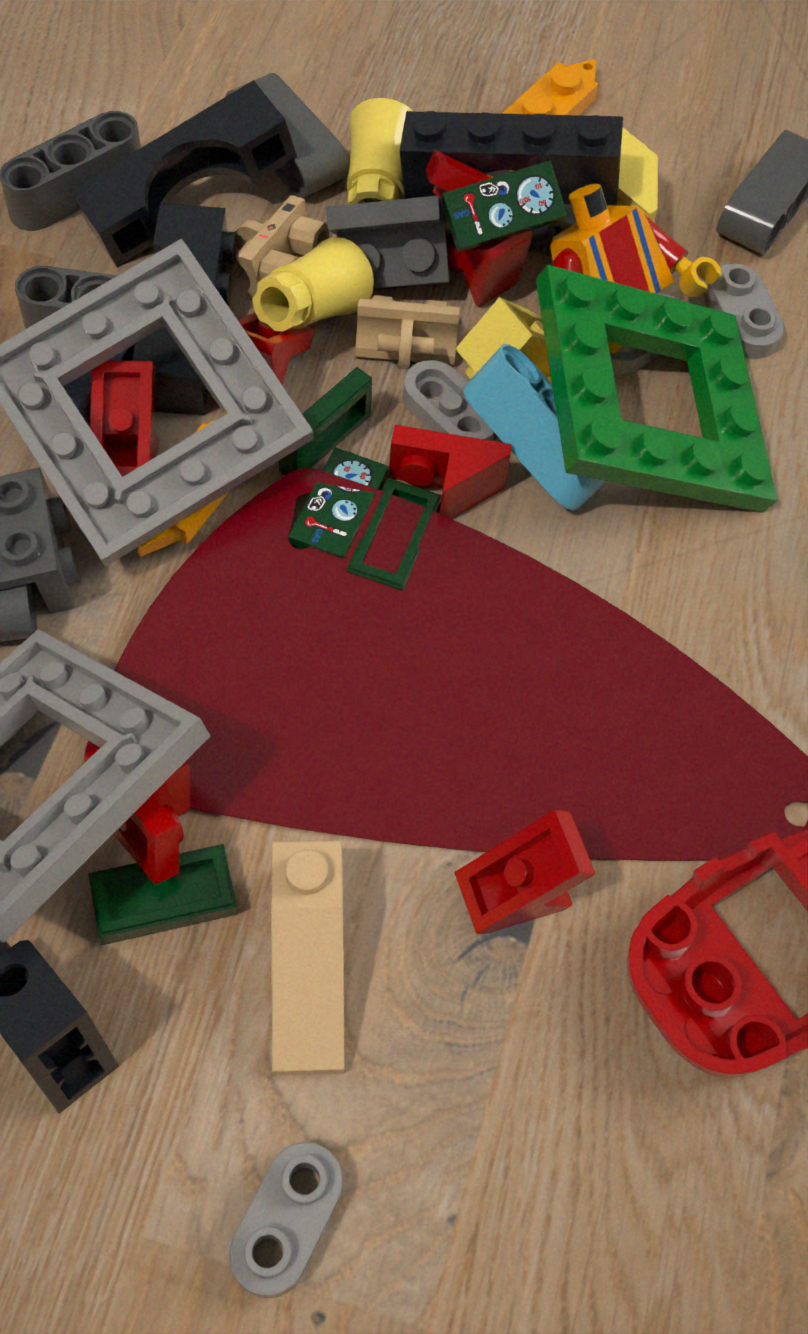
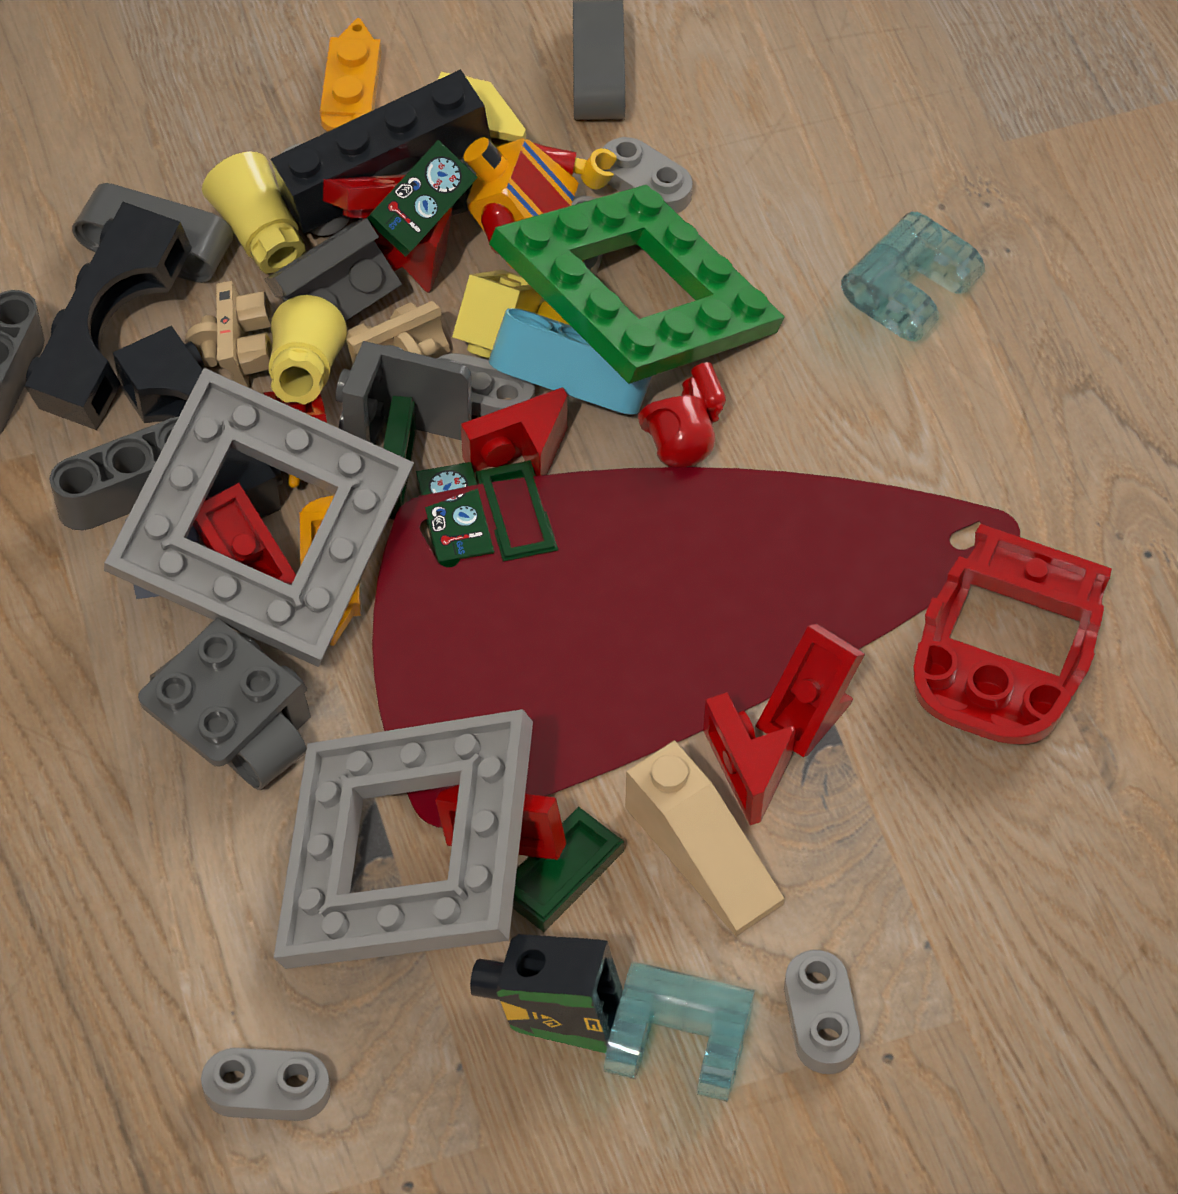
camera: 30 degrees left, 5 degrees down
(156, 1118) = (687, 1005): none -> clear light blue connector
(347, 338) = (379, 372): none -> dark grey bracket
(416, 912) = (748, 762): none -> red slope
(603, 542) = (684, 422): none -> red piece

